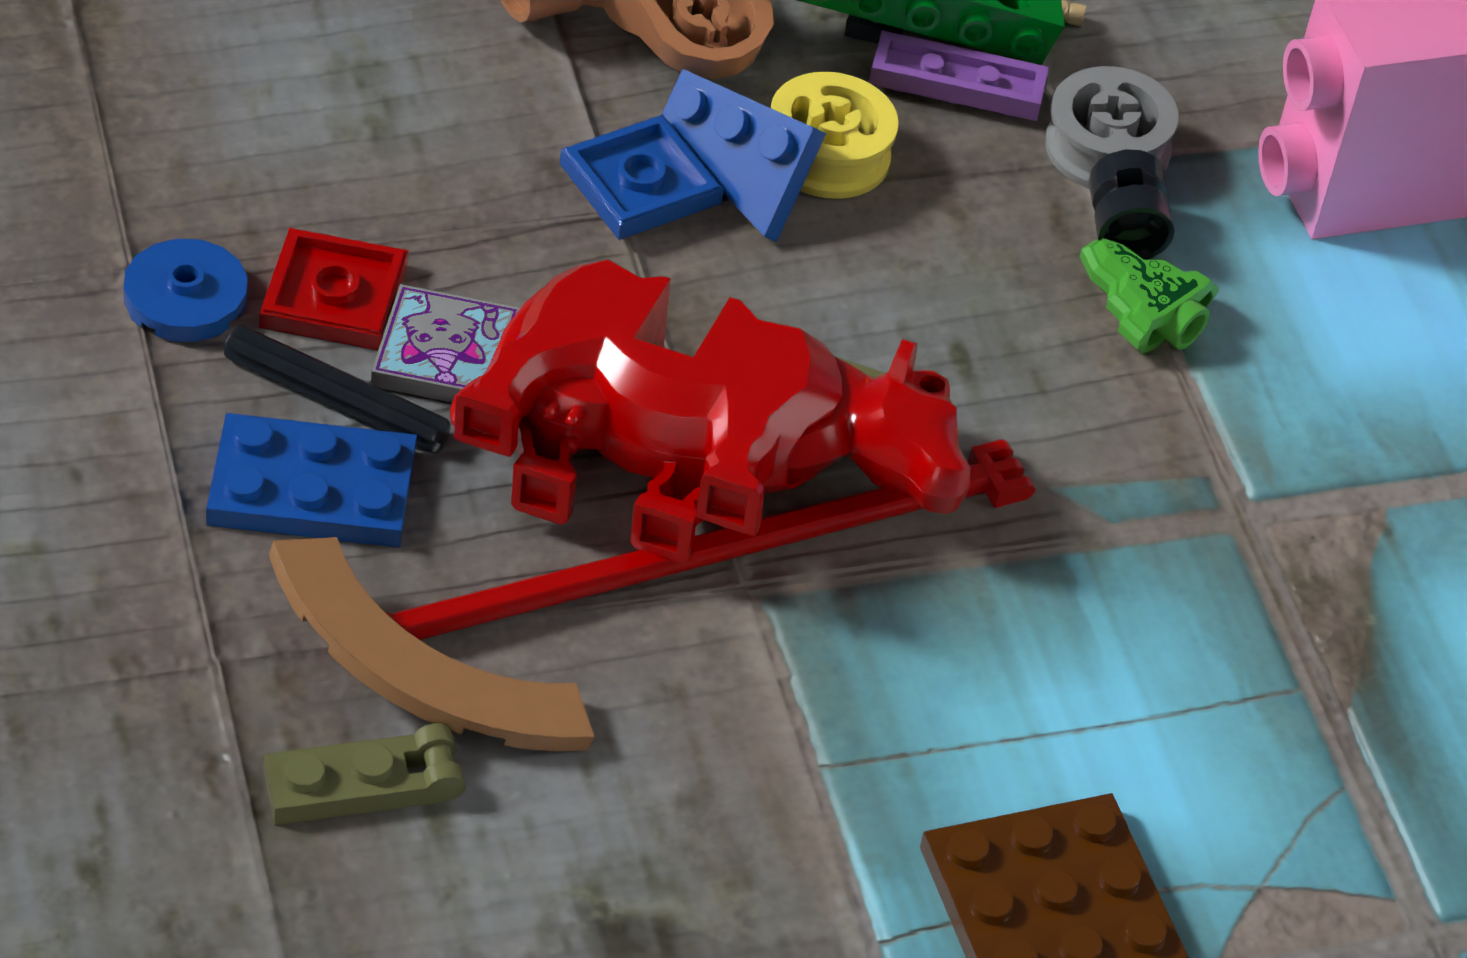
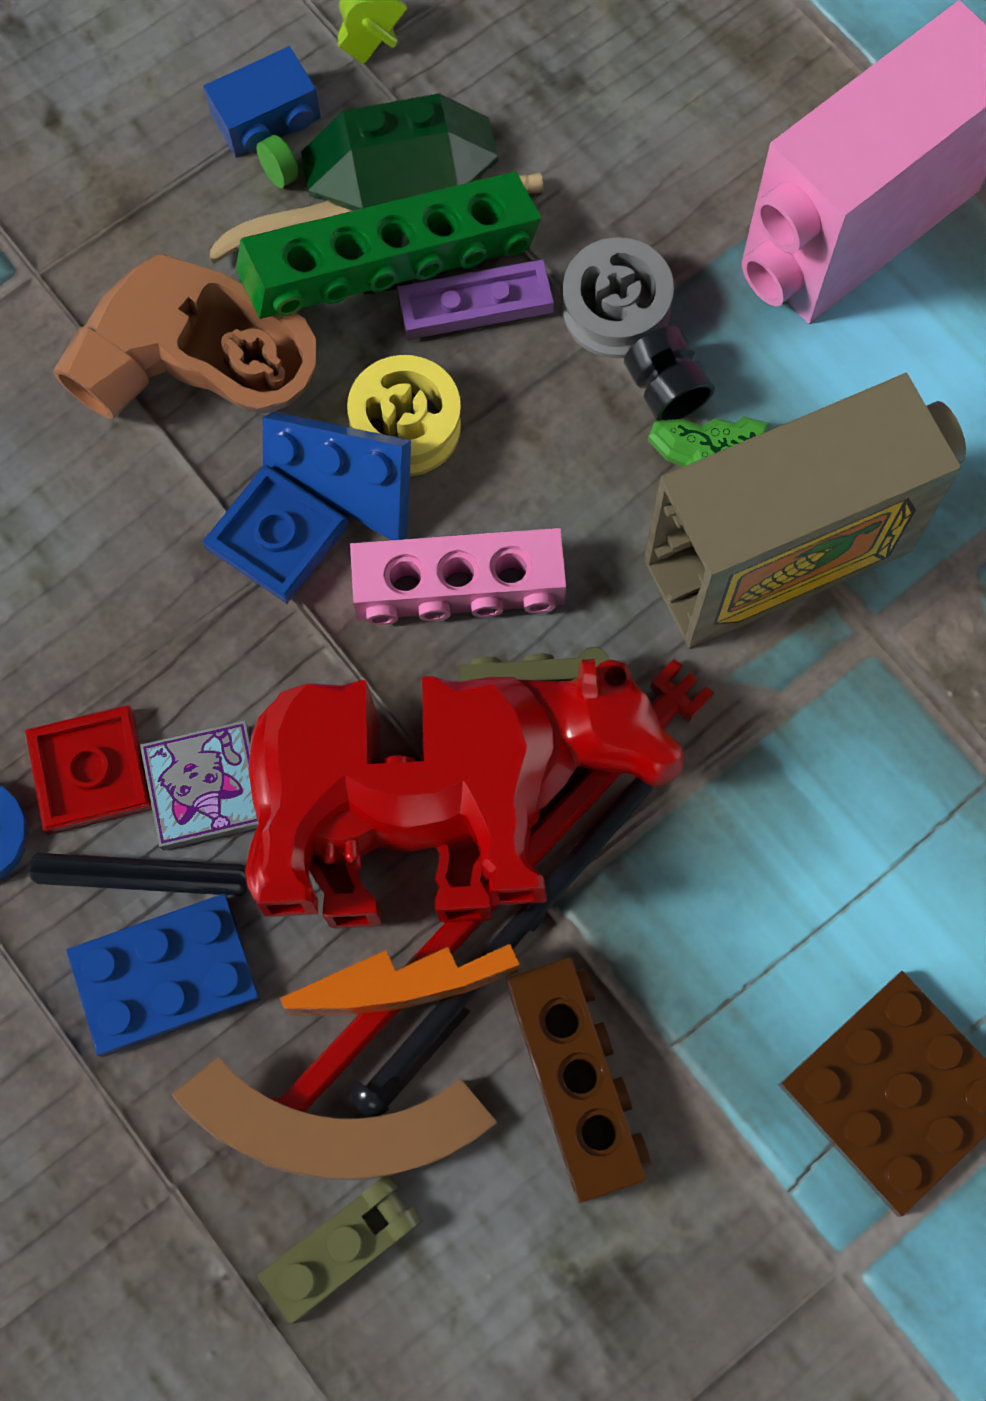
camera: 15 degrees left, 25 degrees up
(577, 566) = (377, 987): none -> orange slope
(597, 628) = (451, 1011): none -> black bar
(699, 735) = (589, 1170): none -> reddish brown brick
(812, 277) = (433, 559): none -> bright pink brick
(1202, 325) = (800, 507): none -> dark tan brick

